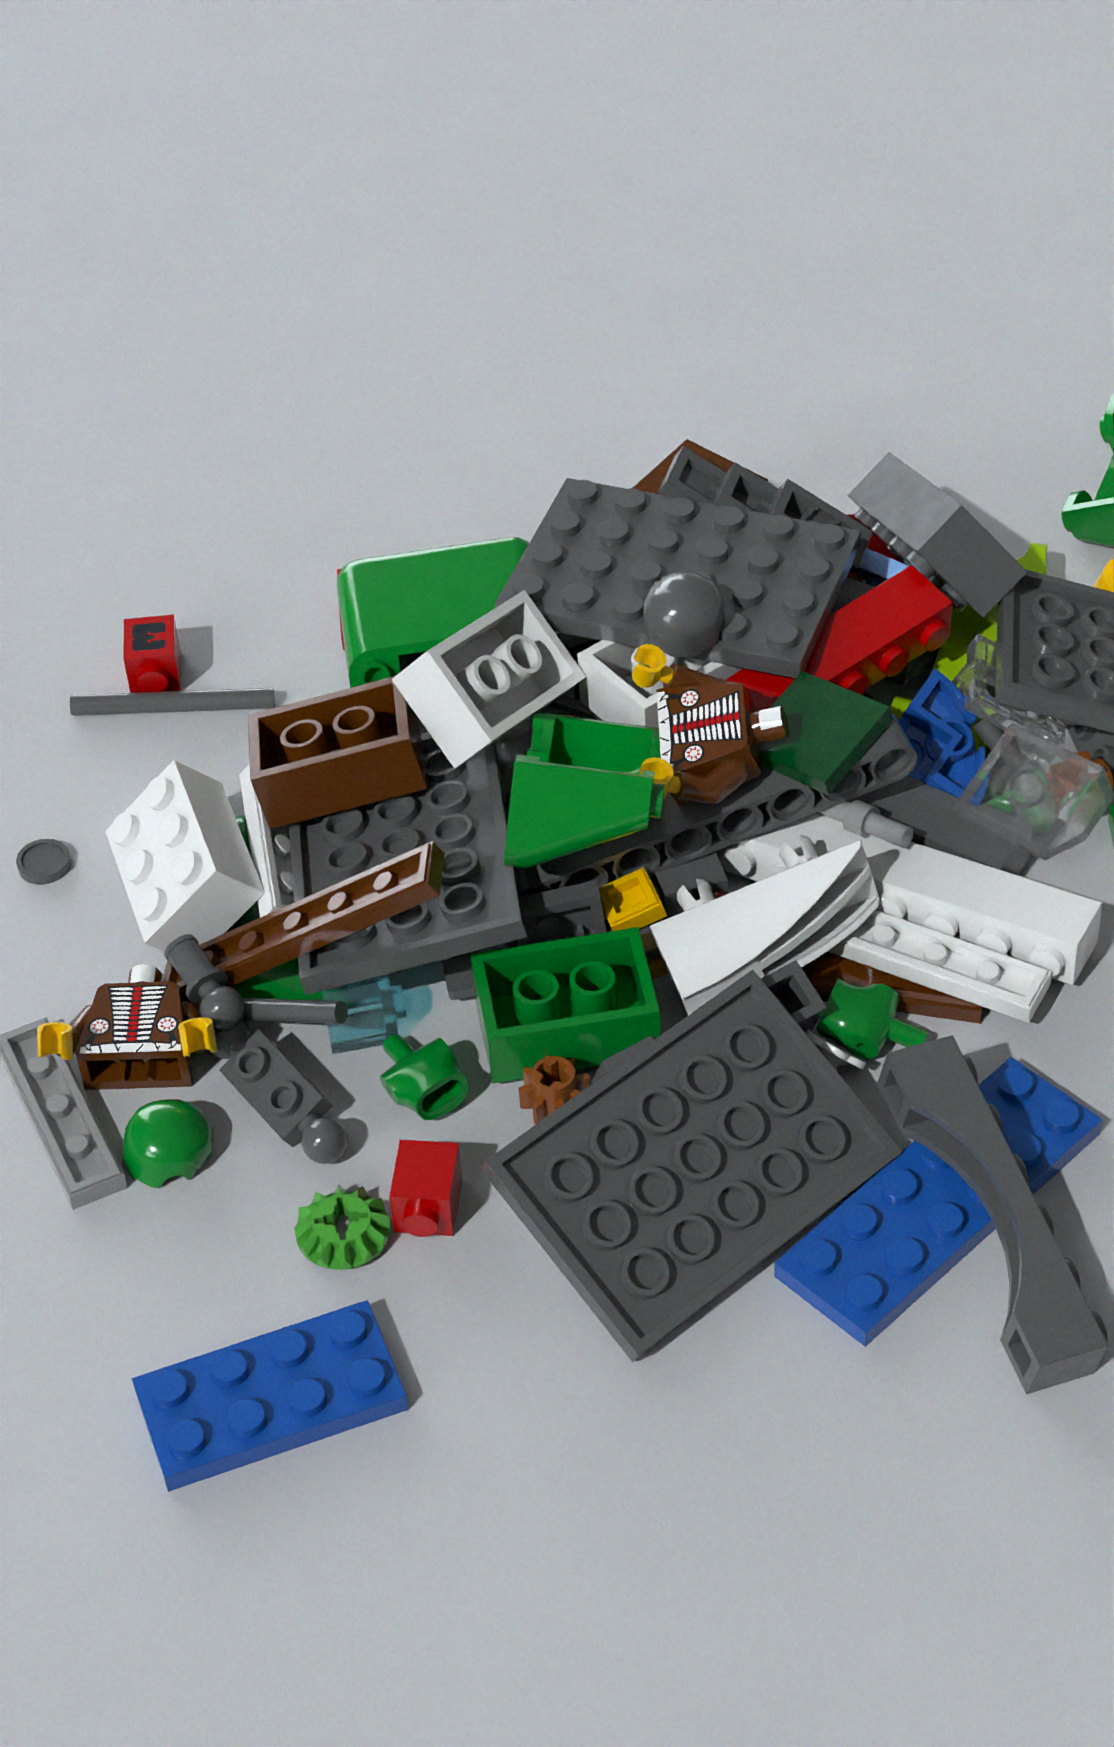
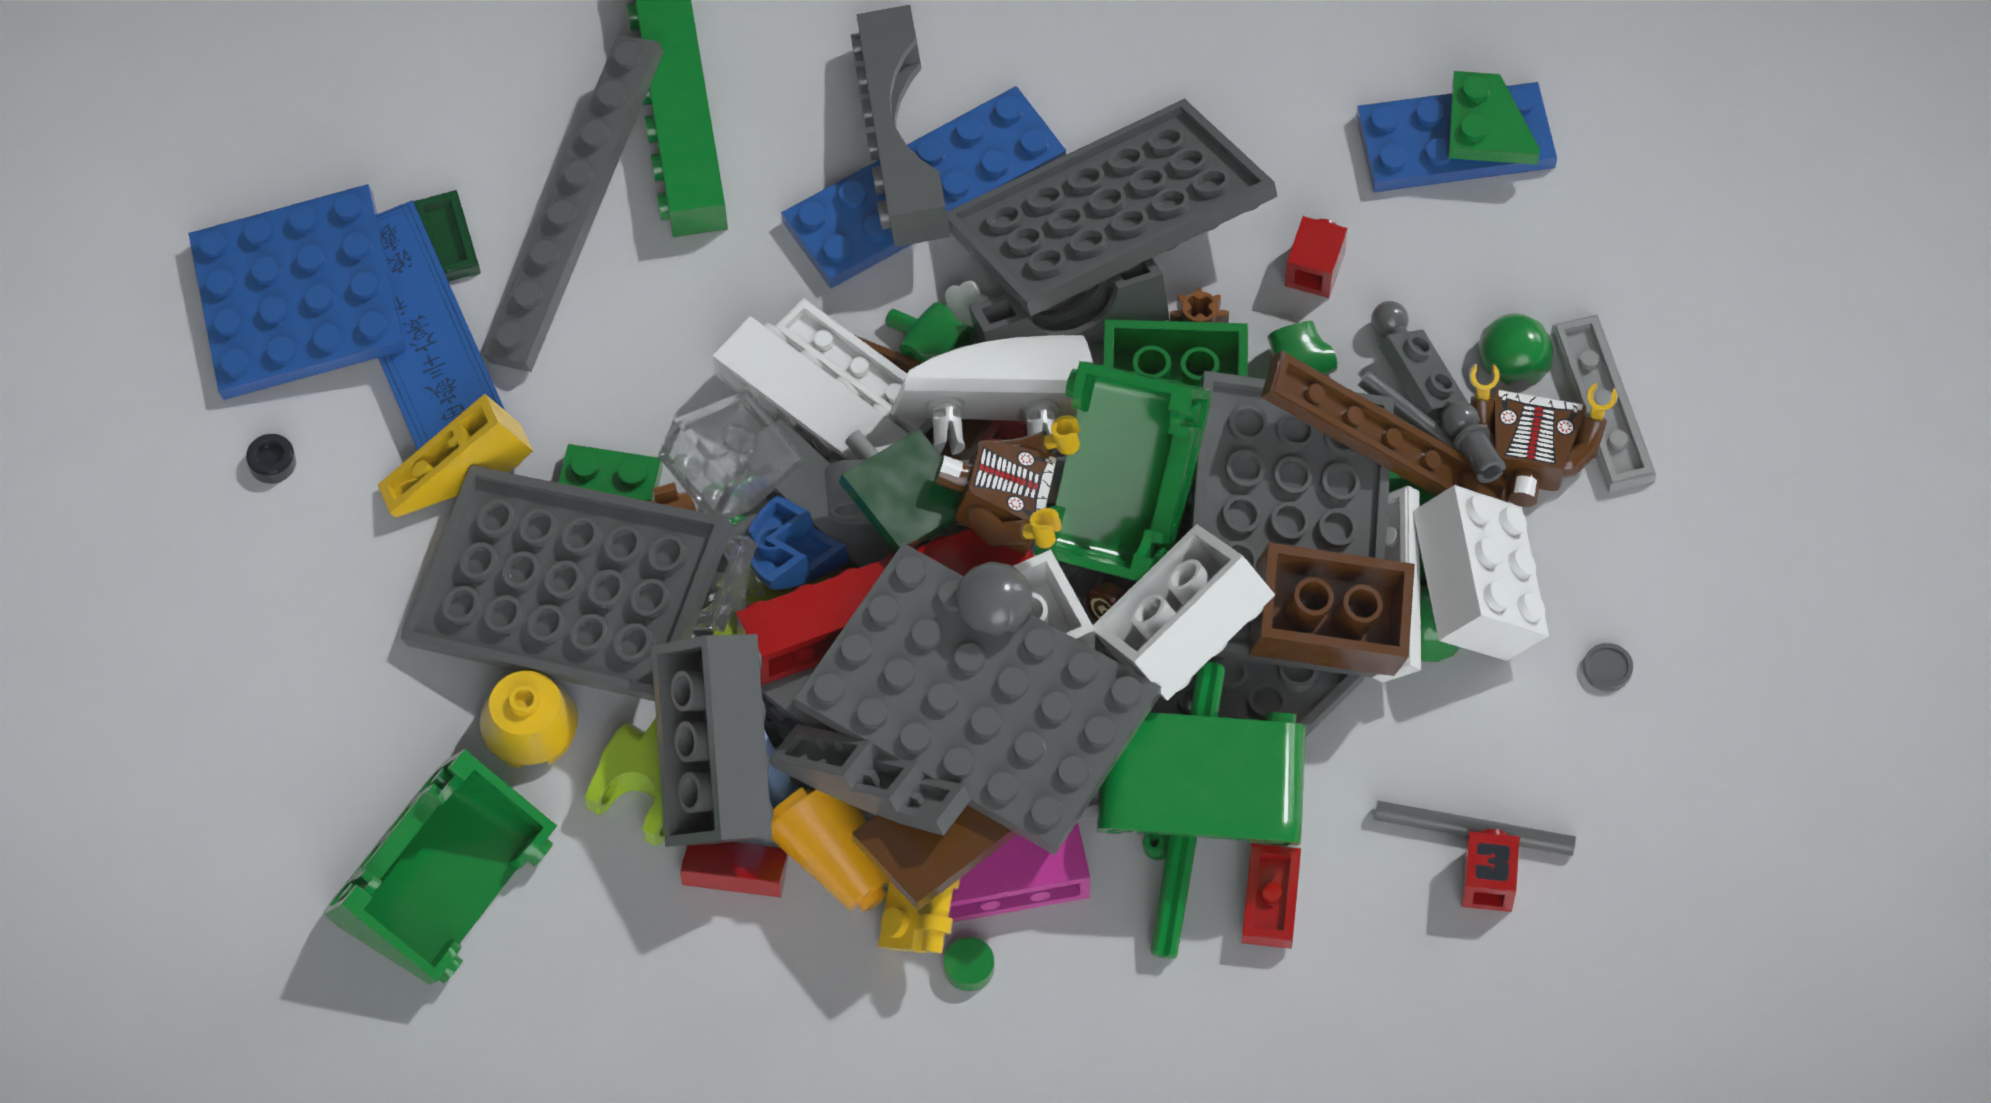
camera: 170 degrees left, 15 degrees up
(227, 1380) = (1488, 122): none -> green wing
(366, 1233) = (1367, 260): bright green gear -> none

